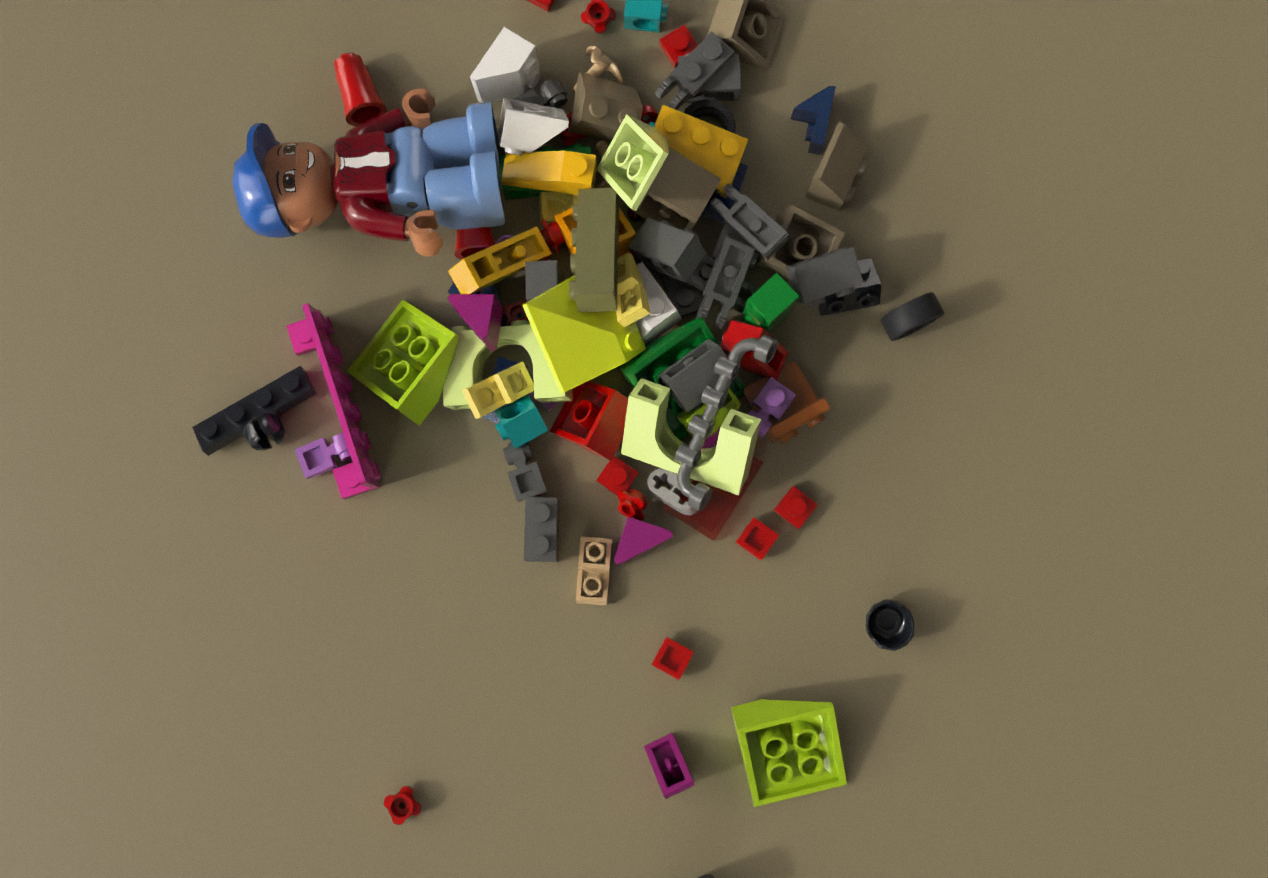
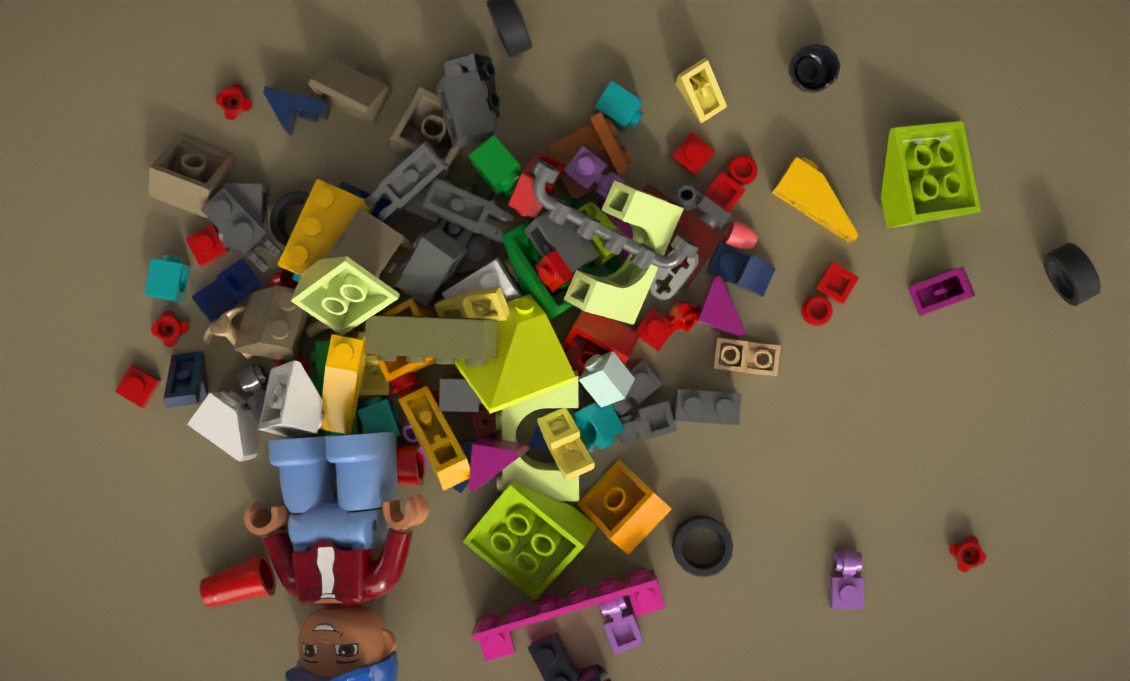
camera: 85 degrees left, 5 degrees up
(363, 681) = (847, 590): none -> medium lavender plate
(388, 514) = (725, 550): none -> black tyre
(439, 452) = (623, 507): none -> light orange slope
(520, 213) = (379, 416): none -> teal brick
(549, 31) = (186, 380): none -> dark blue slope
(562, 462) = (644, 385): none -> dark grey plate
(564, 425) = (606, 378): none -> light aqua brick
(636, 66) = (227, 290): none -> clear blue slope
(644, 639) = (816, 310): none -> red plate
(668, 366) = (553, 271): none -> red plate
(681, 561) = (741, 269): none -> dark blue slope
(715, 558) = (740, 236): none -> coral hose
(736, 525) = (710, 212): none -> dark grey plate
(761, 627) = (812, 195): none -> yellow slope
(782, 557) = (742, 170): none -> red plate
(821, 54) = (226, 96): none -> red plate
(837, 430) = (620, 107): none -> teal brick
(859, 511) = (701, 90): none -> light yellow slope

